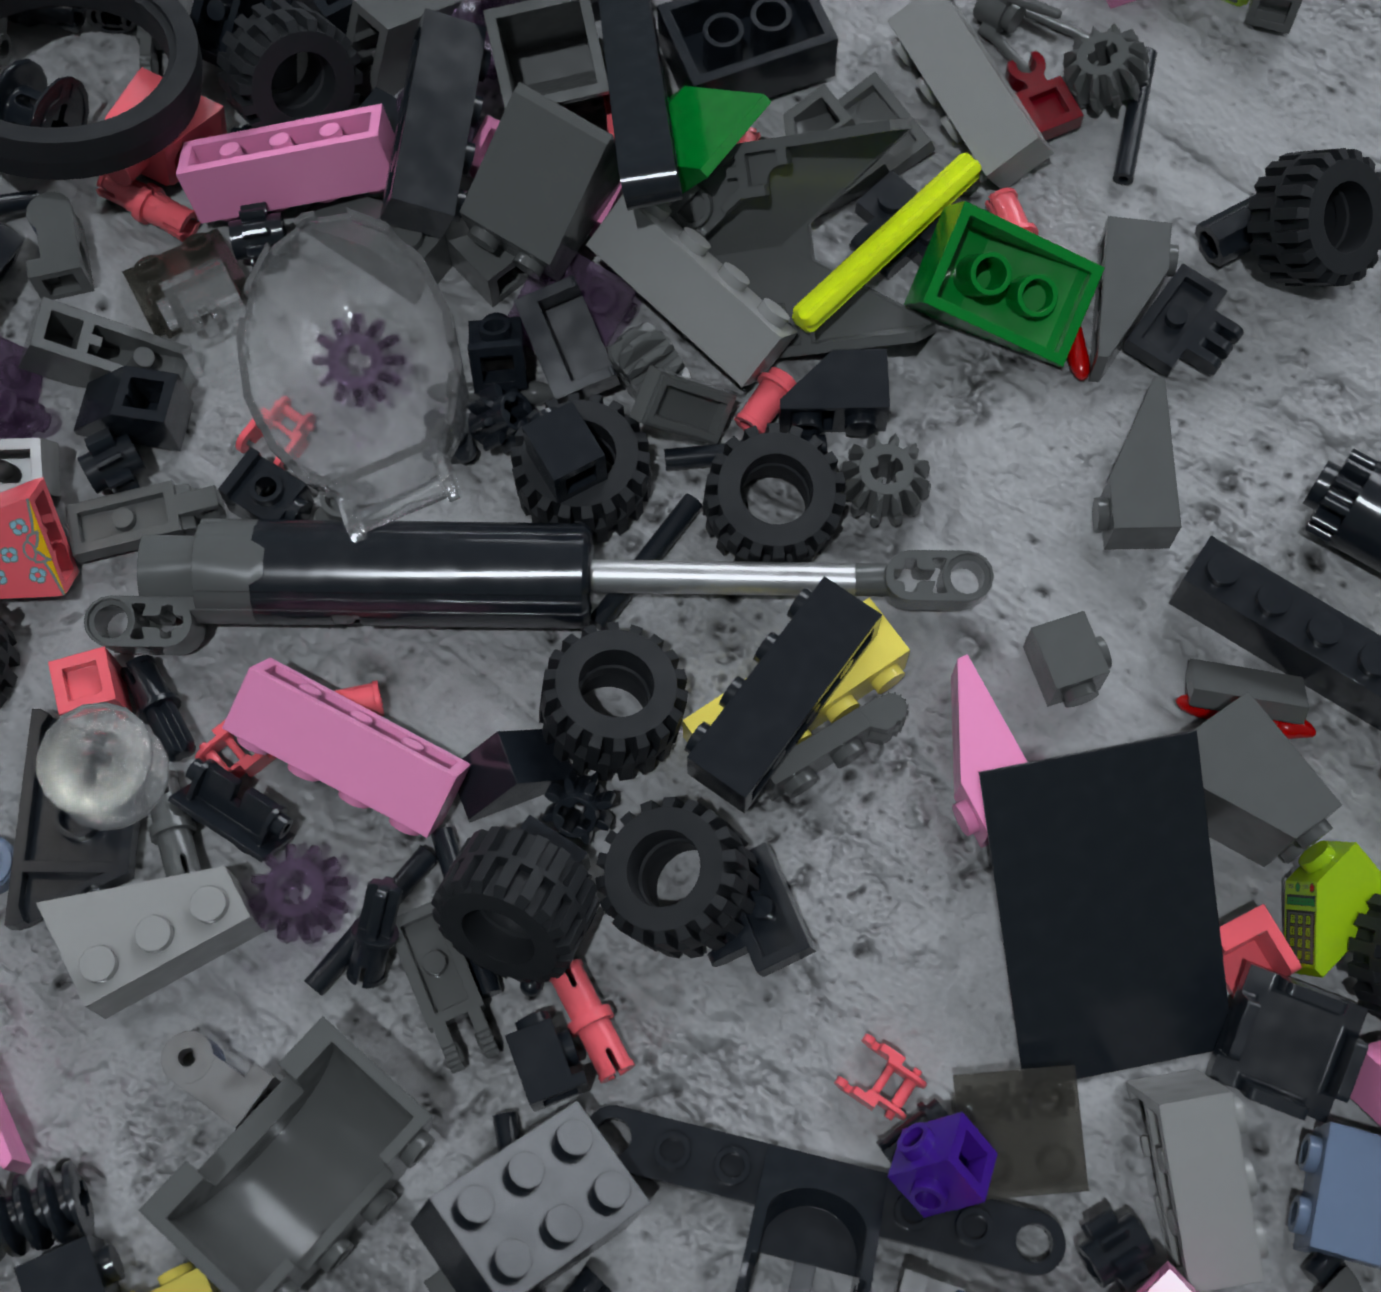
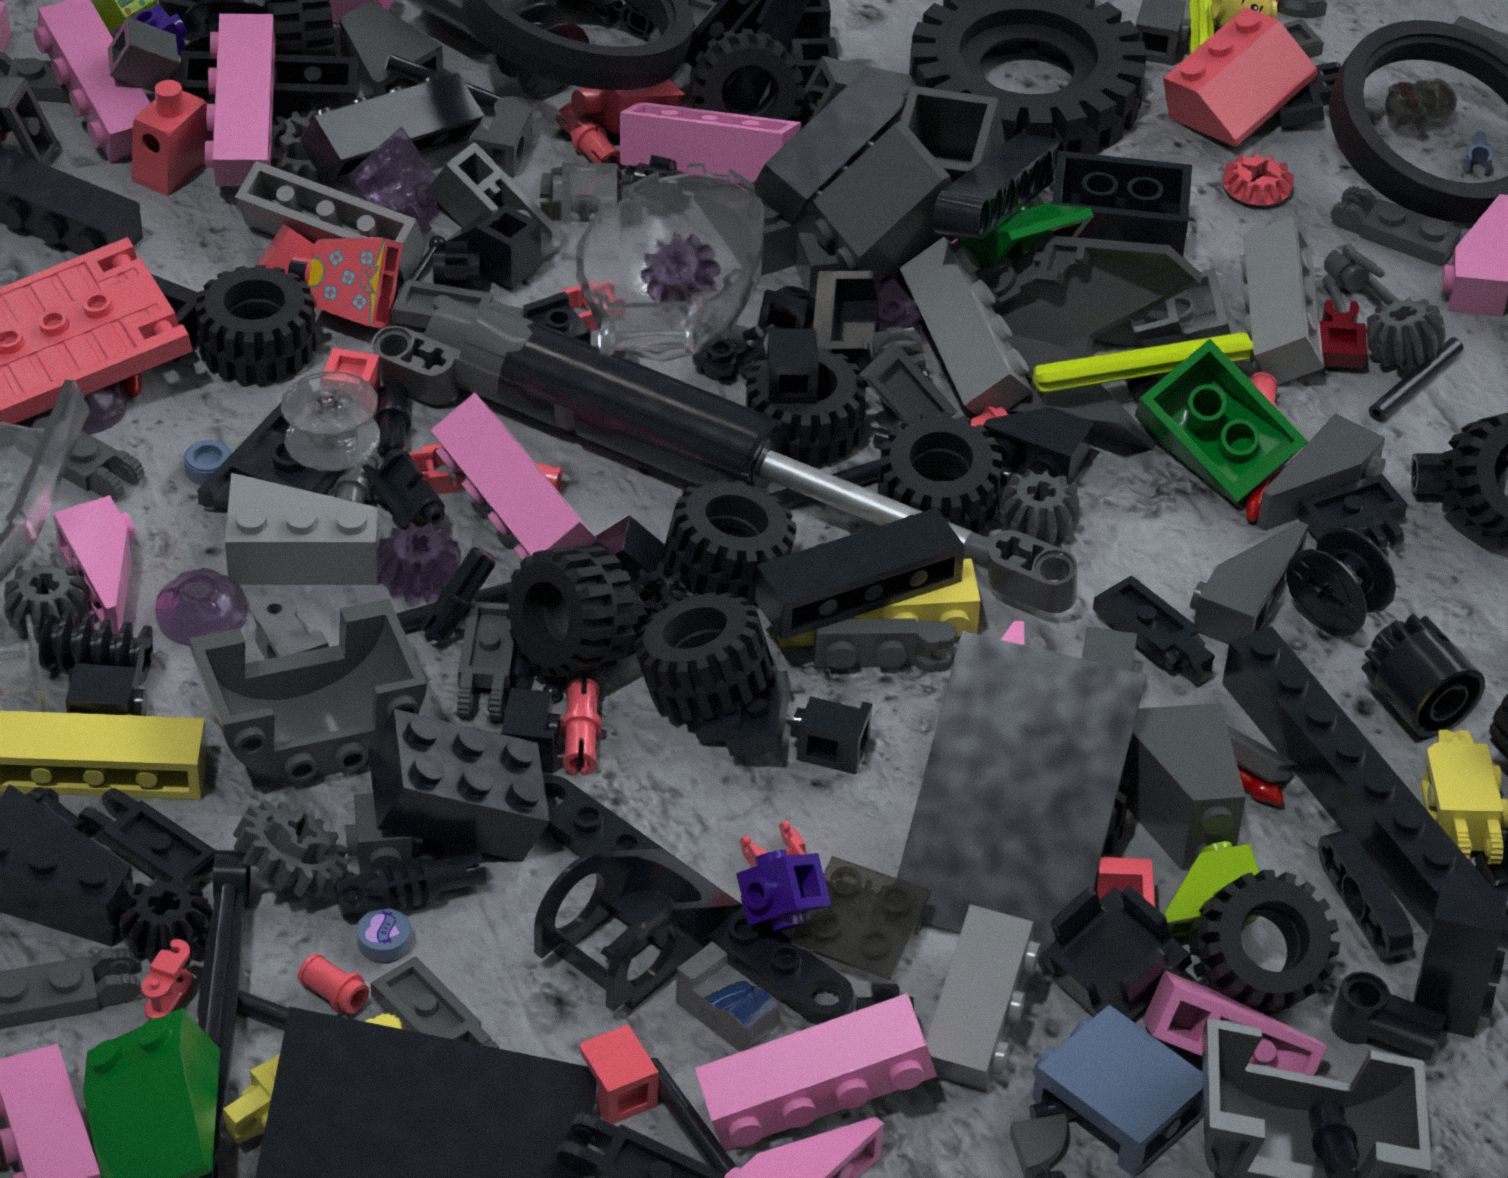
camera: 25 degrees right, 25 degrees down
(65, 430) = (435, 245): none -> black hinge
(122, 1087) = (189, 616): none -> clear purple piece
(850, 893) = (832, 734): none -> black brick
(1078, 575) = (1158, 626): none -> black hinge
(1235, 433) = (1337, 562): none -> black piece

